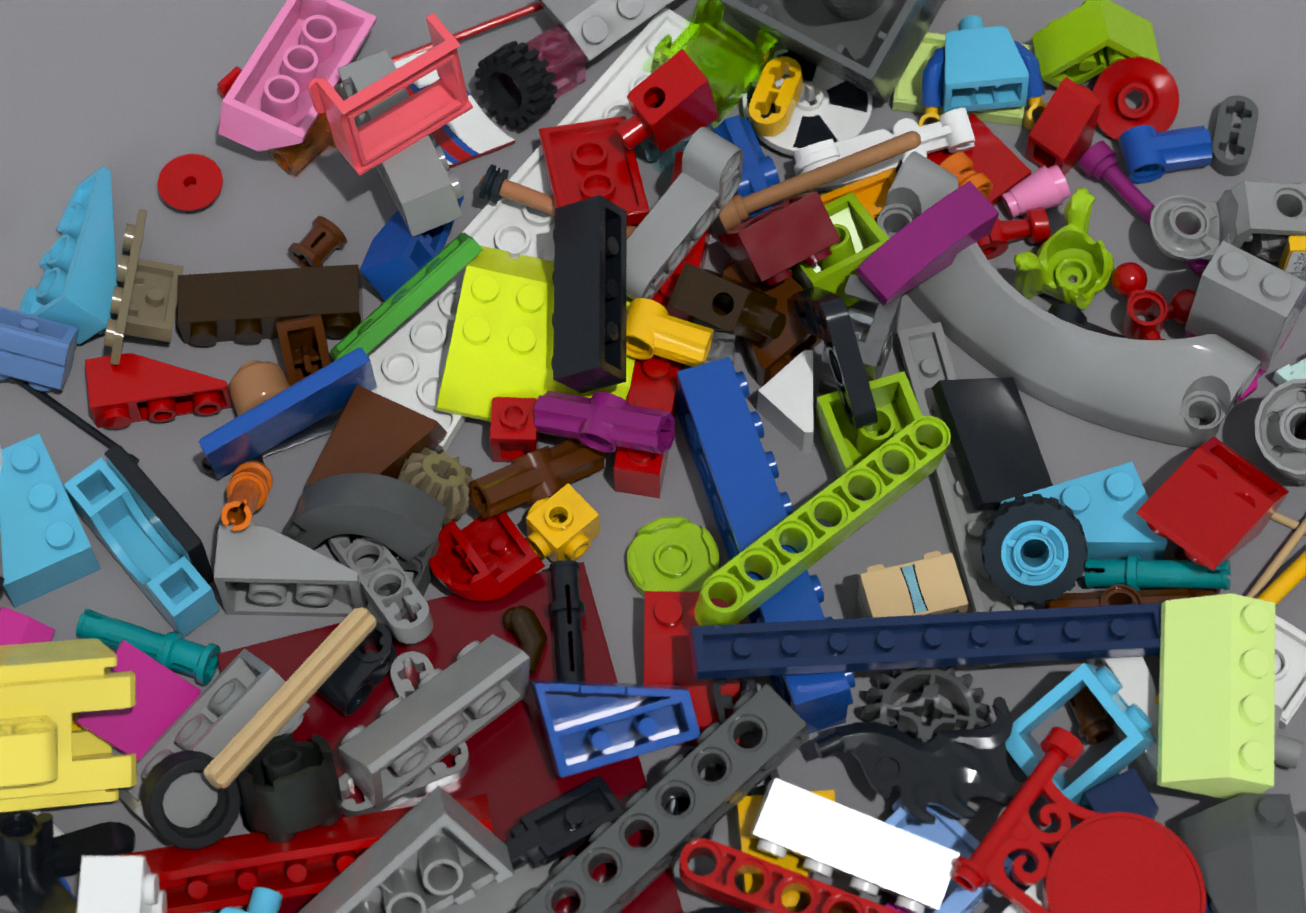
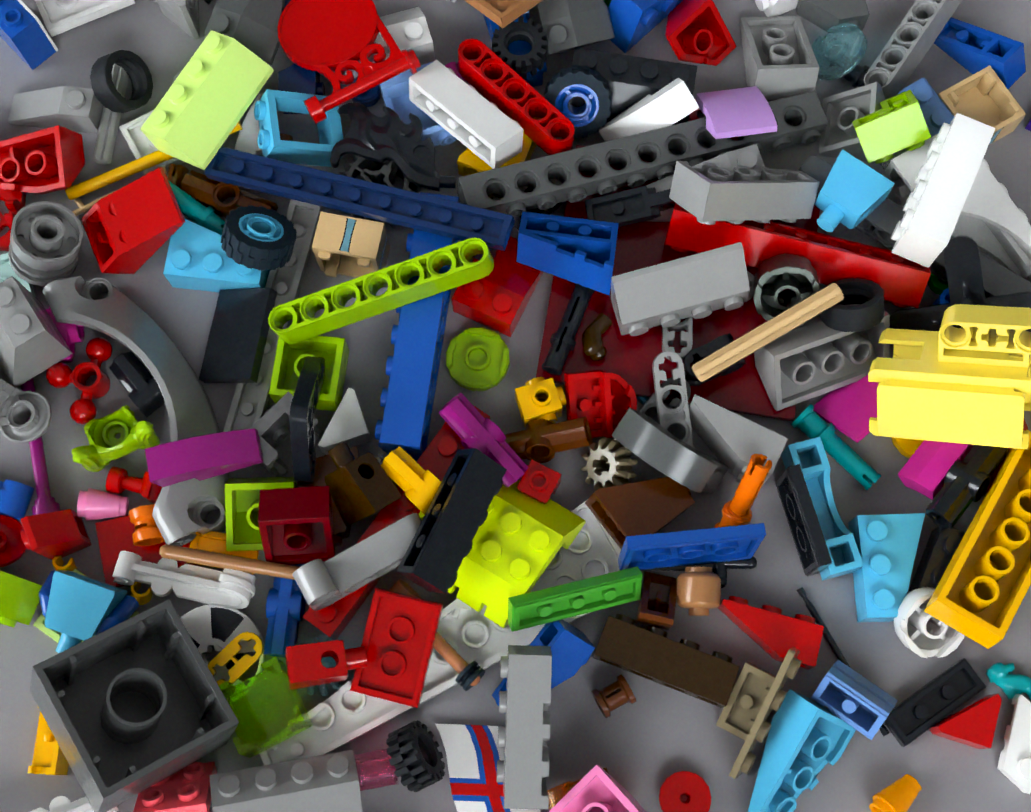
camera: 155 degrees left, 10 degrees up
(407, 120) = (524, 725): coral piece -> none

